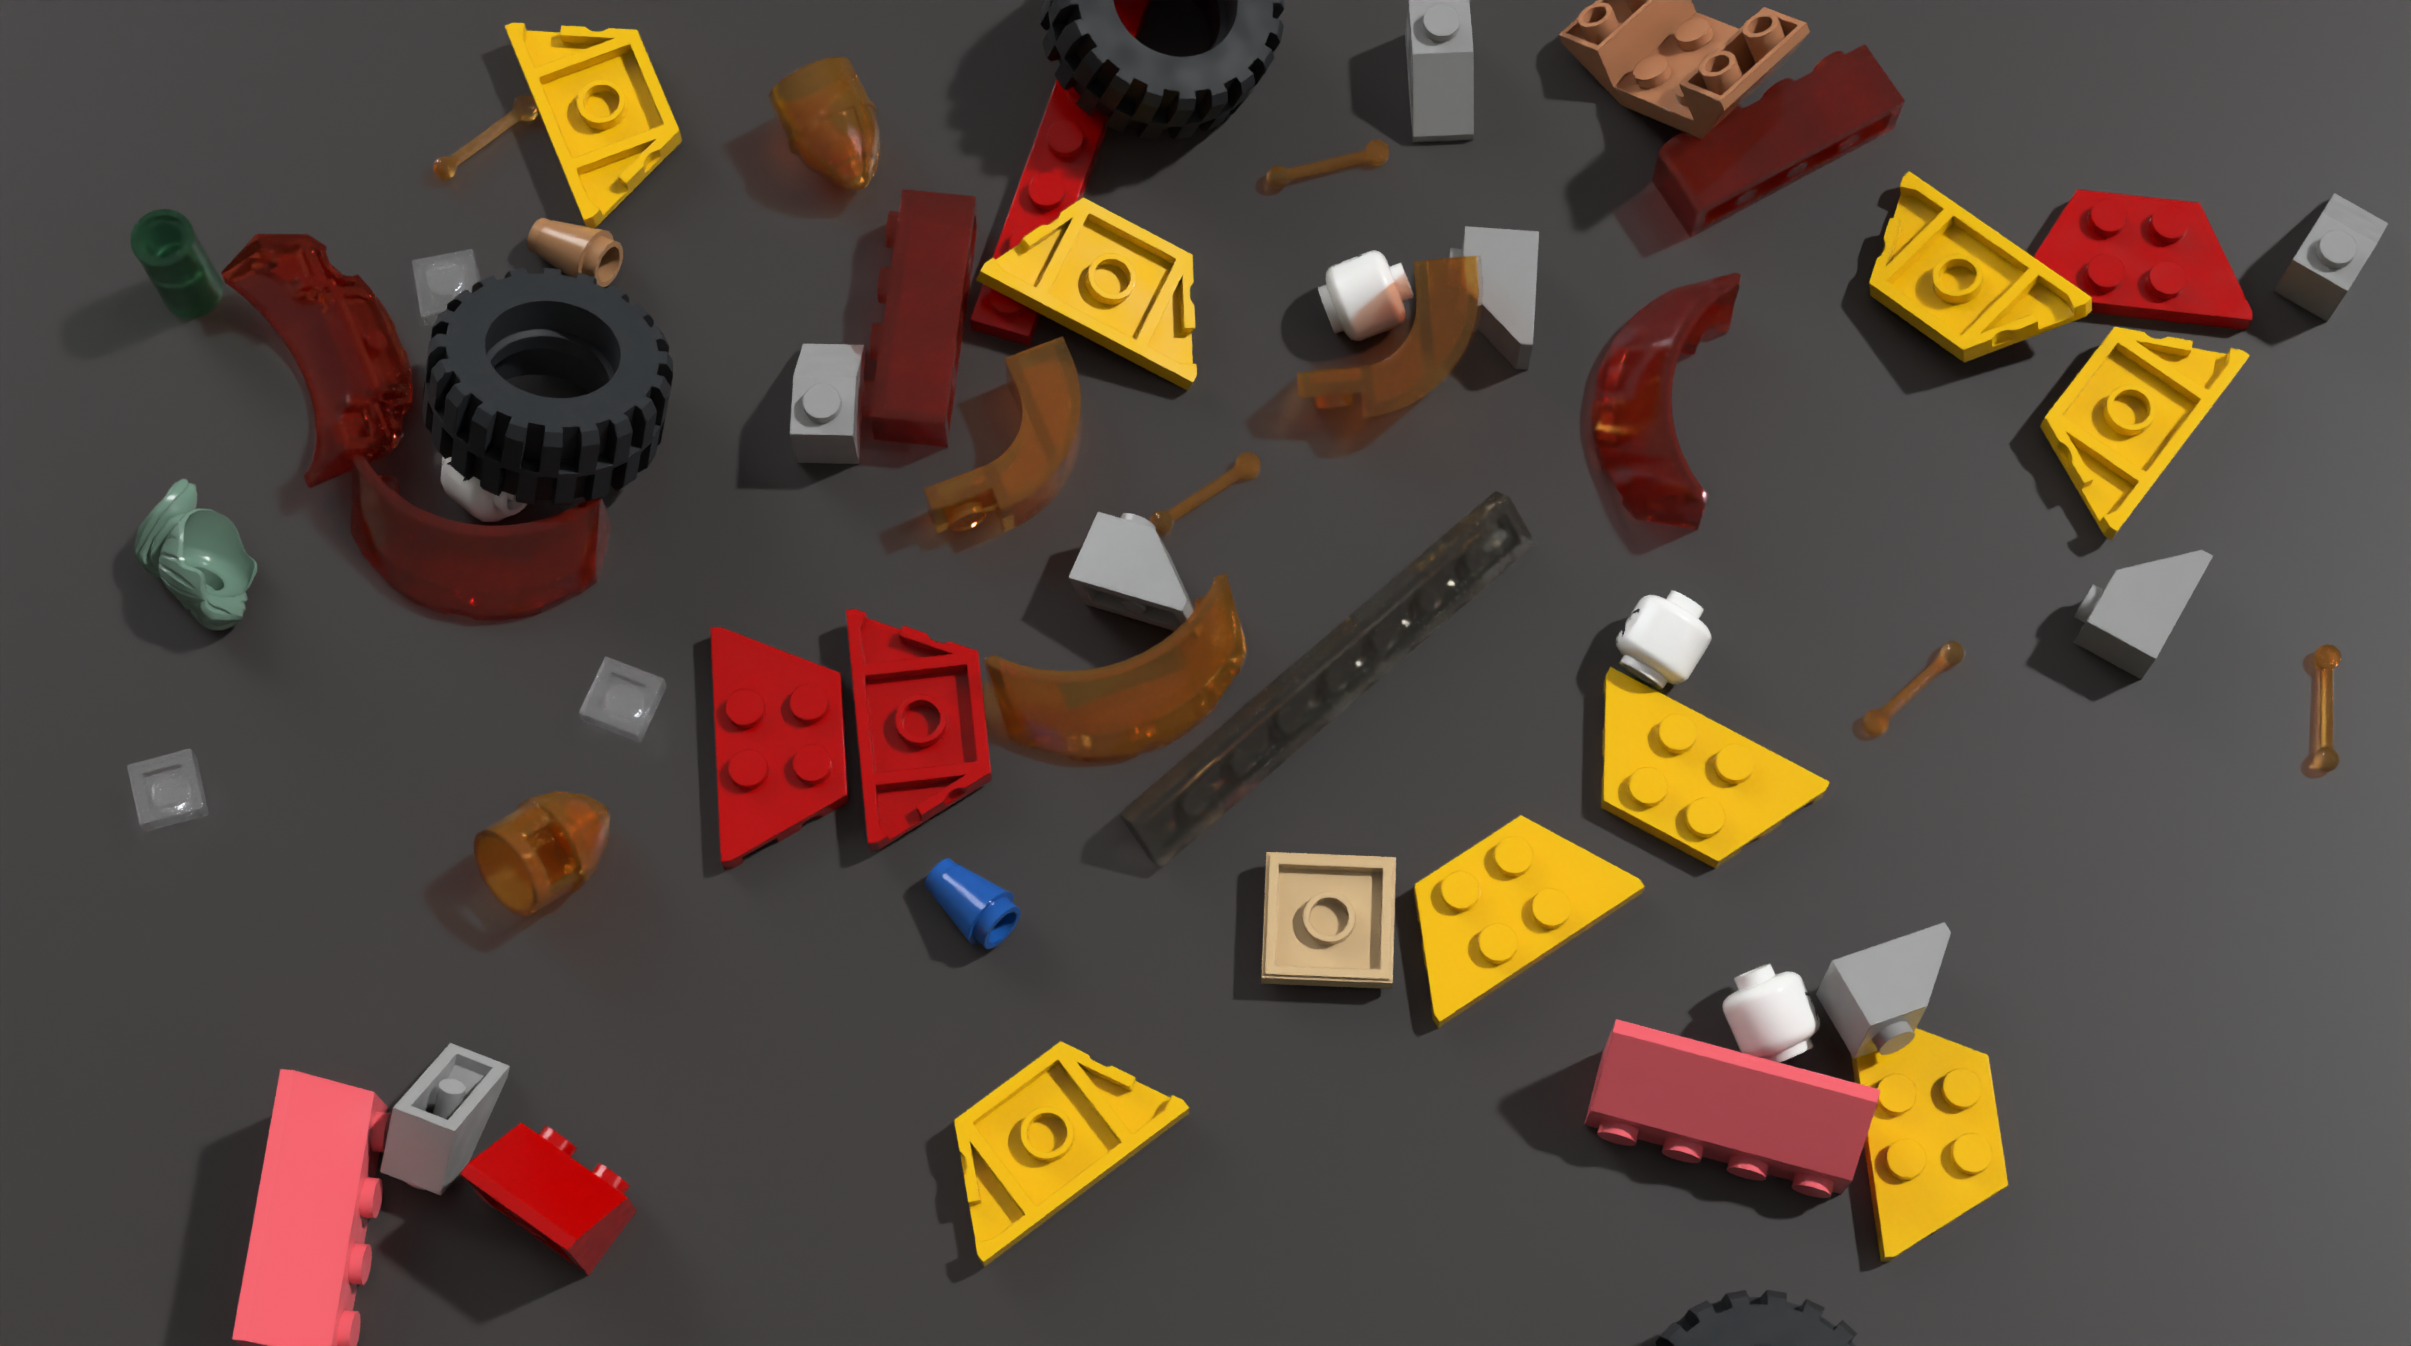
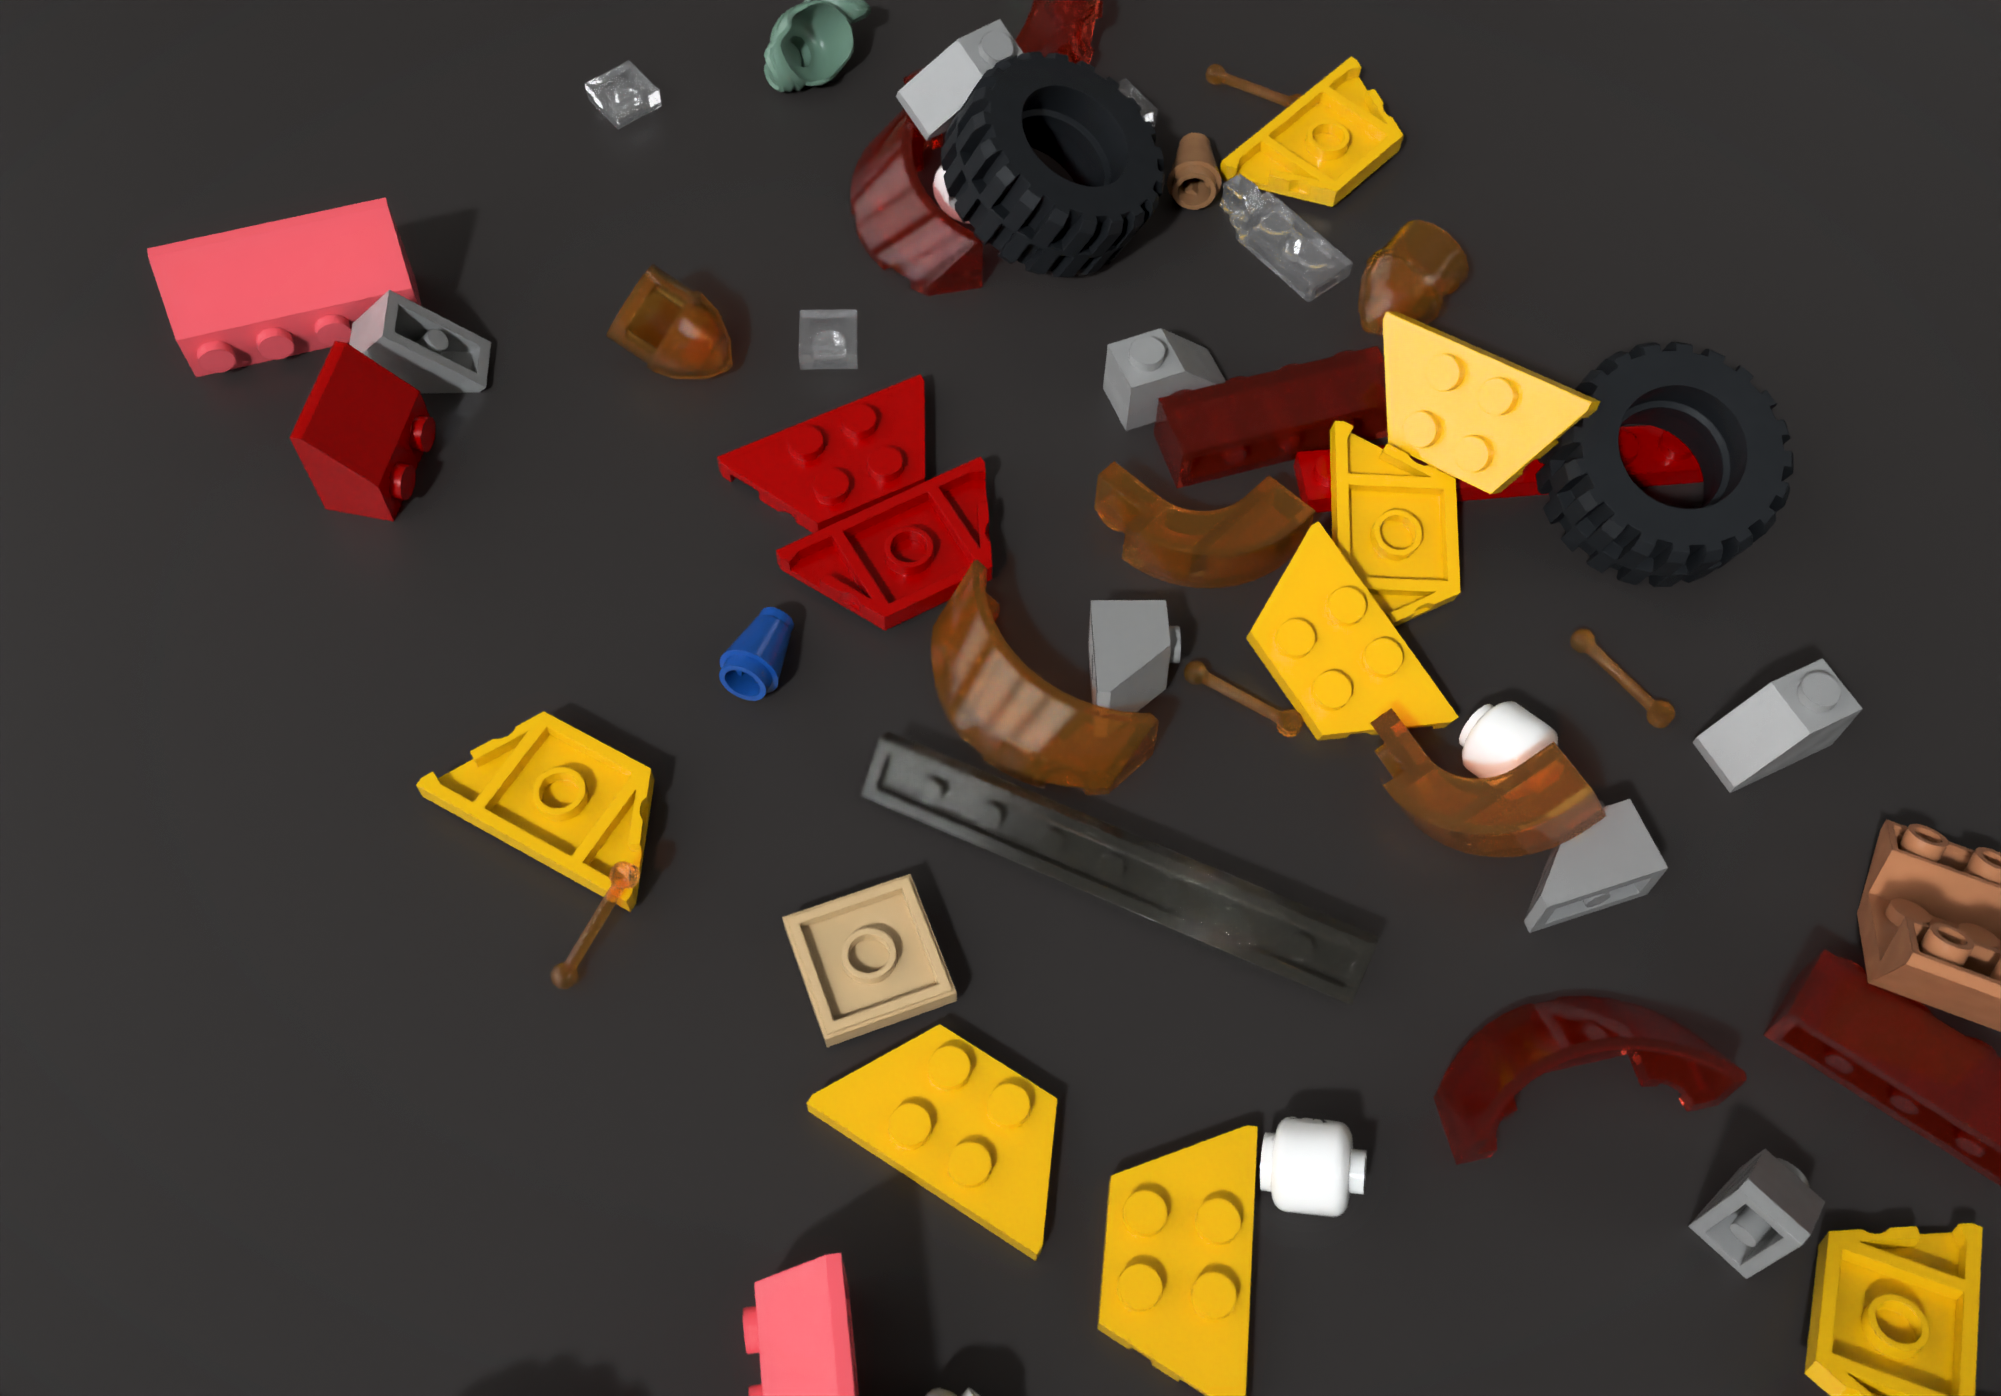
camera: 65 degrees right, 10 degrees down
(390, 424) = (946, 82): none -> slope
(702, 208) = (1283, 239): none -> clear hinge
(1035, 148) = (1469, 406): none -> yellow wing
(1170, 1099) = (622, 876): none -> clear orange hinge
(1204, 387) = (1339, 649): none -> yellow wing
(1839, 324) = (1759, 1214): none -> light grey slope

